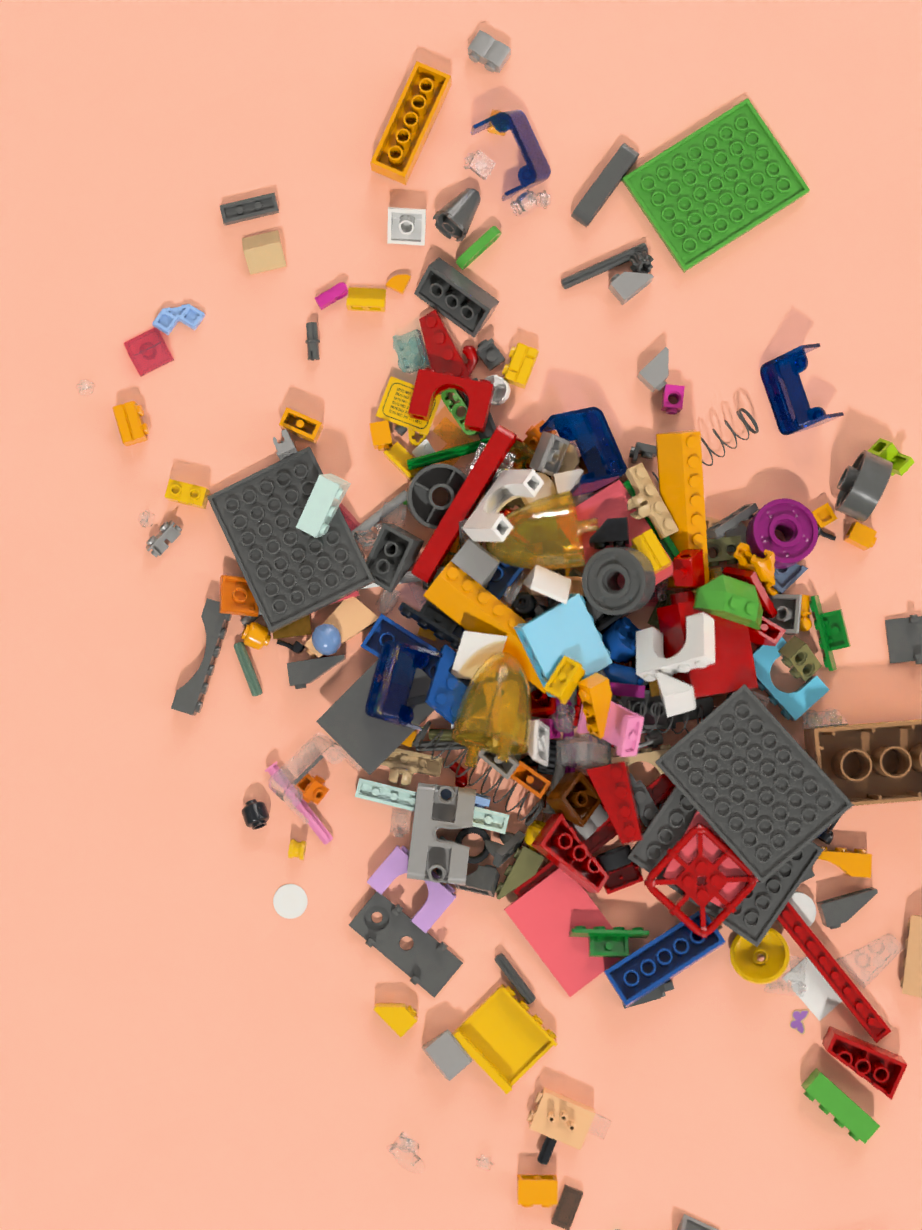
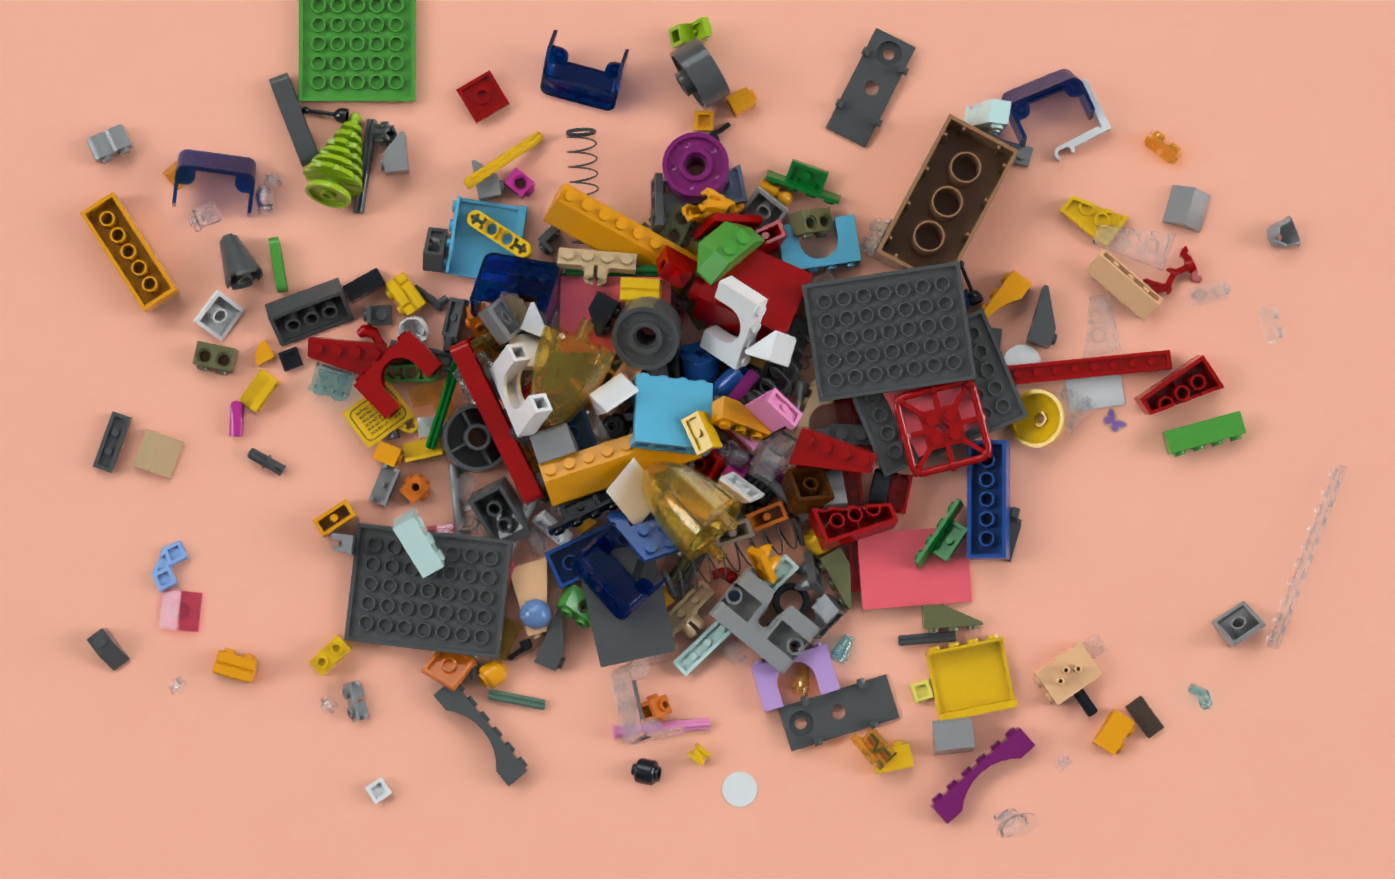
camera: 70 degrees left, 0 degrees up
(80, 312) = (108, 648): none -> dark grey slope
(102, 603) = (378, 790): none -> white plate
(350, 662) = (569, 604): none -> bright green brick
(354, 449) = (385, 485): none -> light grey hinge
(369, 468) = (408, 489): none -> orange brick
(373, 245) = (216, 353): none -> olive brick
(391, 1088) = (1012, 747): none -> magenta arch
(394, 994) = (874, 748): none -> clear yellow panel
(408, 307) = (290, 359): none -> black tile
(409, 597) = (544, 520): none -> white tile
(411, 896) = (801, 681): none -> clear yellow cone
(460, 913) = (842, 649): none -> clear light blue cone
(468, 1002) = (921, 690): none -> light yellow tile
(487, 802) = (763, 566): none -> light orange tile
(506, 328) = (364, 285): none -> black panel
(525, 418) = (454, 322): none -> dark grey hinge
(530, 396) = (437, 304): none -> dark grey bar
(541, 980) = (945, 617): none -> olive slope
(573, 364) = (434, 249): none -> dark grey arch
(588, 241) = (337, 168): none -> lime plant
(614, 391) = (469, 245): none -> medium azure panel
(620, 408) = (500, 233): none -> yellow beam
(633, 219) = (340, 115): none -> black hinge
(684, 372) = (503, 160): none -> yellow axle
(724, 323) = (482, 96): none -> red plate

